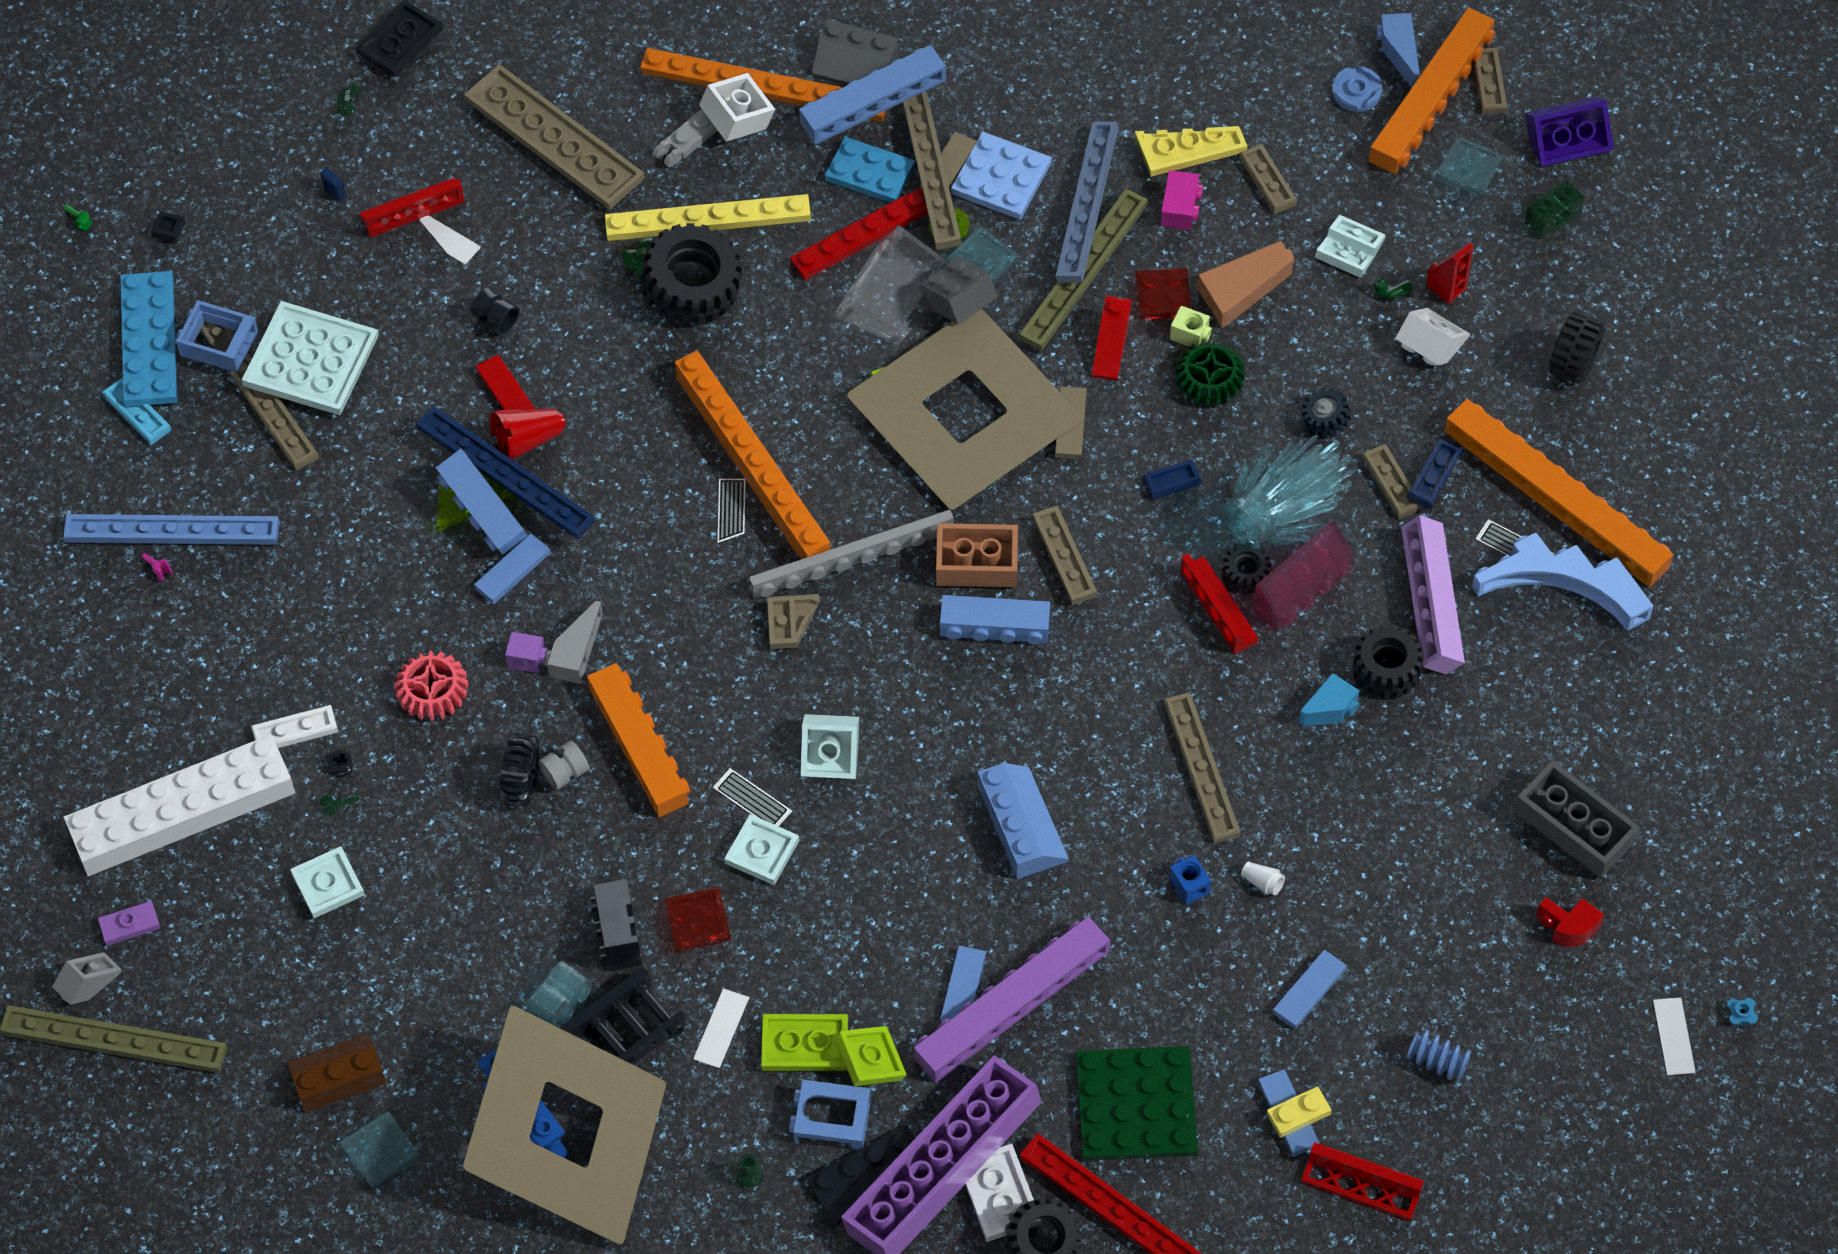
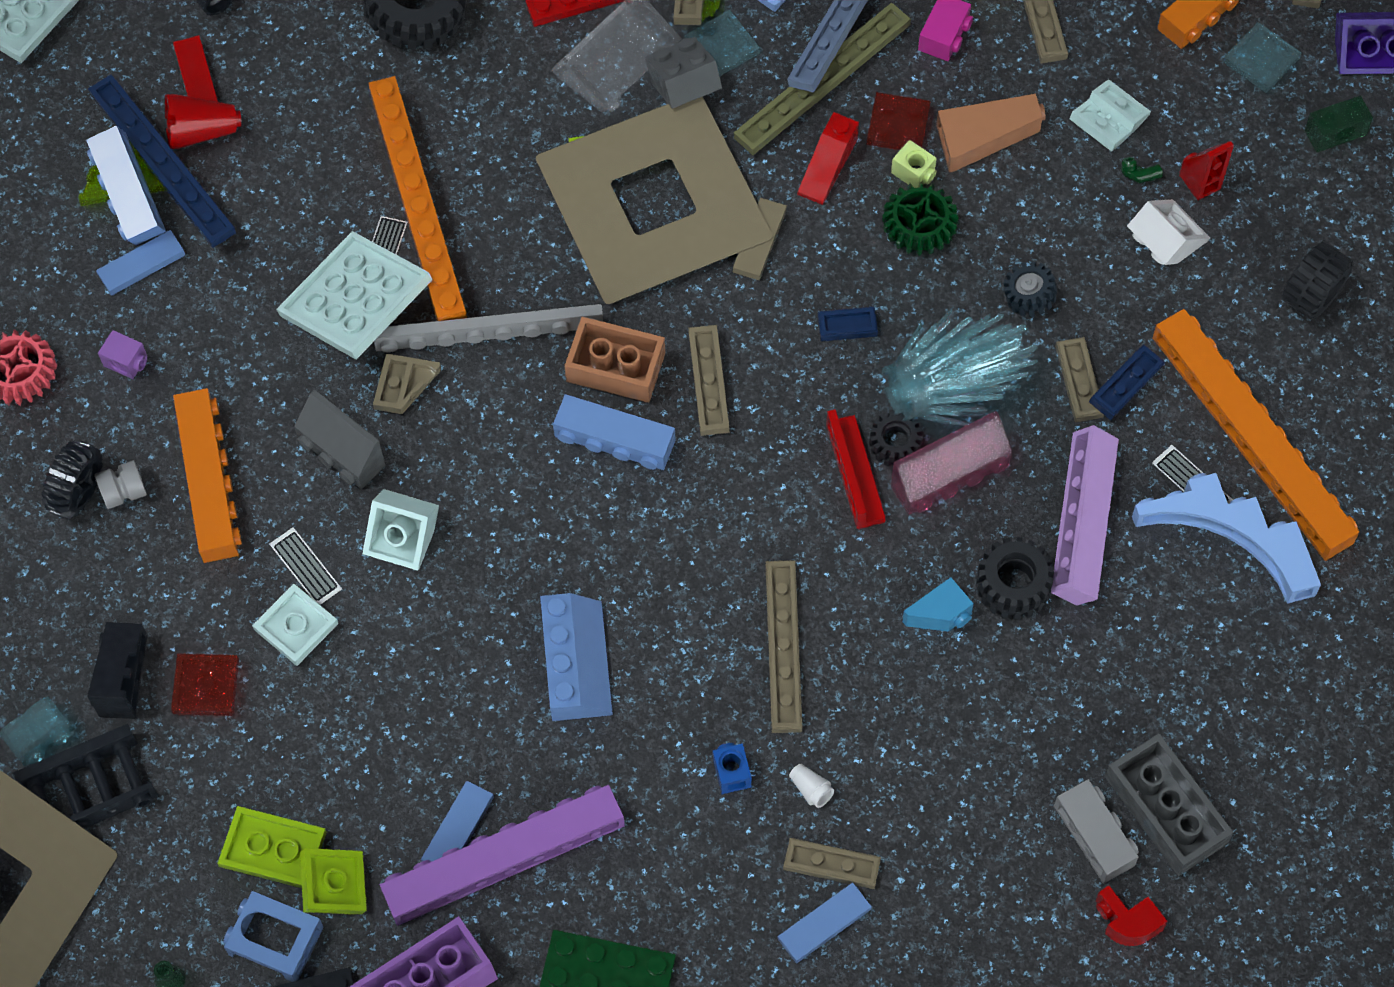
camera: 15 degrees right, 5 degrees up
(574, 645) = (174, 360): light grey slope -> none
(721, 1028) = (193, 808): white sticker -> none
(723, 551) = (354, 294): none -> light aqua plate
(751, 681) = (339, 441): none -> dark grey slope
(1300, 939) = (832, 863): none -> dark tan tile
(1521, 856) = (1097, 830): none -> light grey brick

